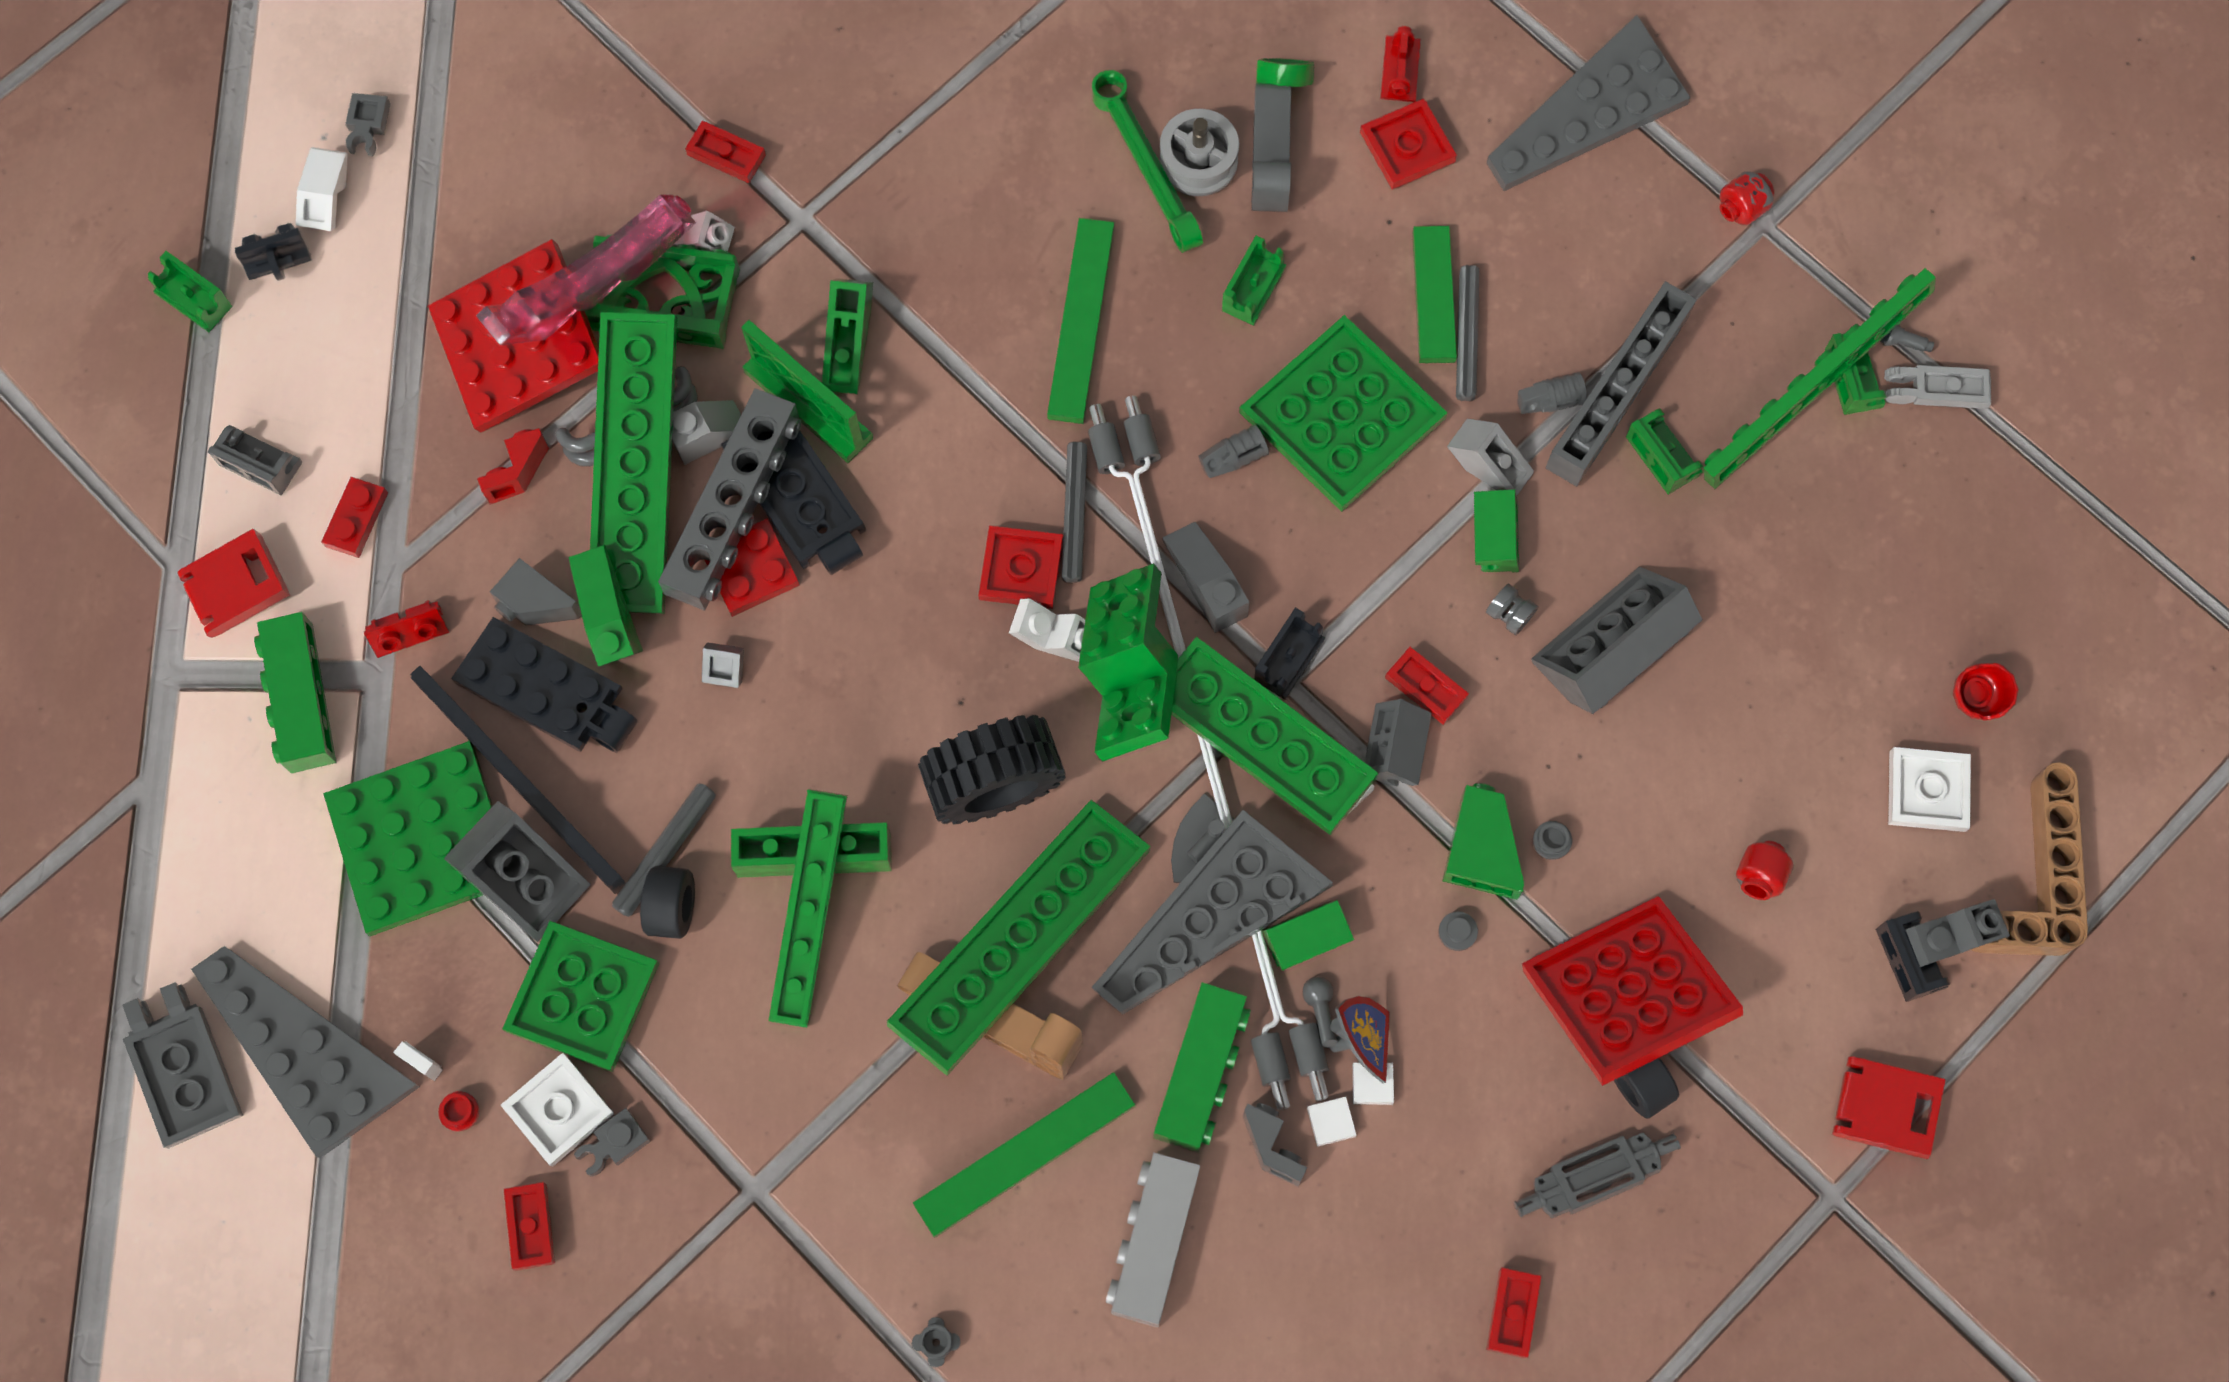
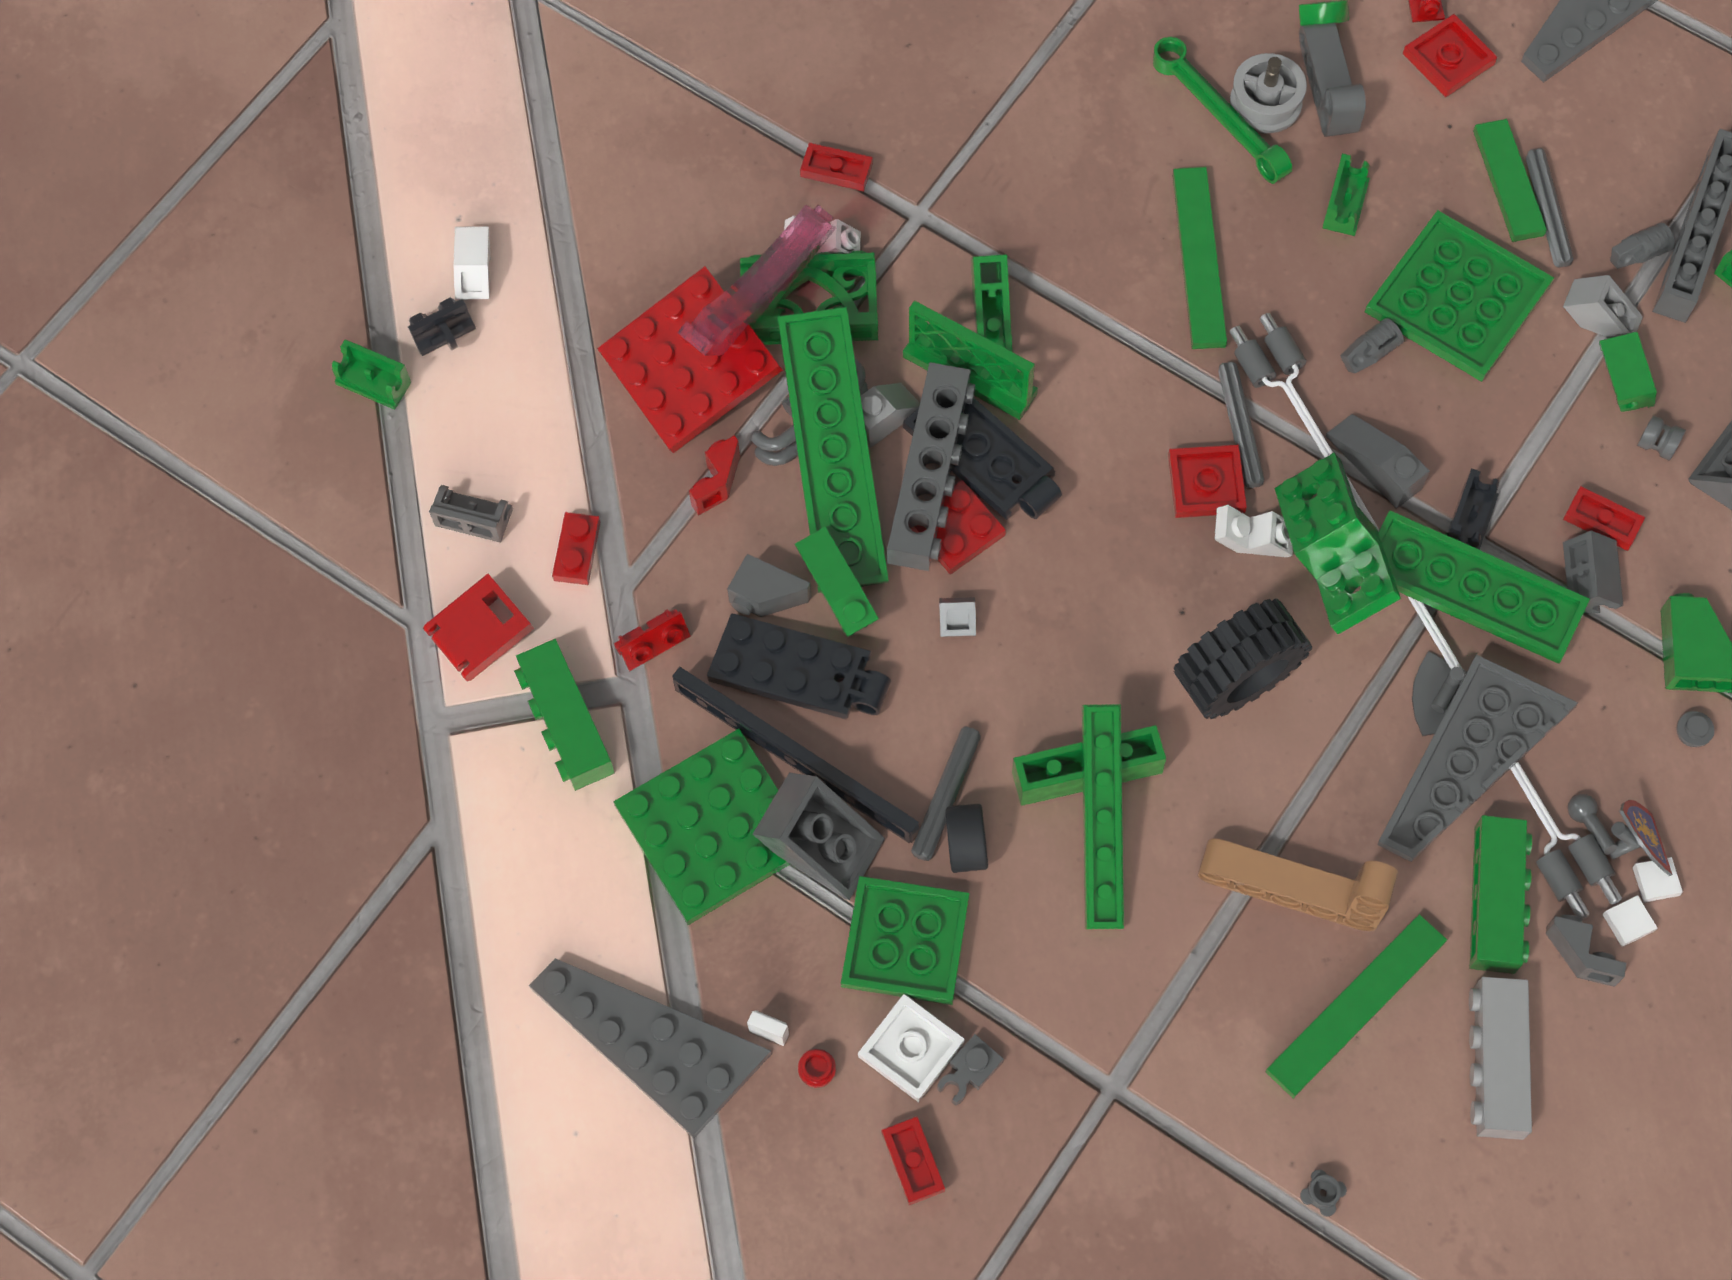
camera: 10 degrees left, 5 degrees down
(179, 1068) = (541, 1081): dark grey tile -> none
(365, 118) = (497, 194): dark grey plate -> none
(1018, 937) = (1302, 808): green plate -> none
(1308, 935) = (1562, 757): green hinge -> none

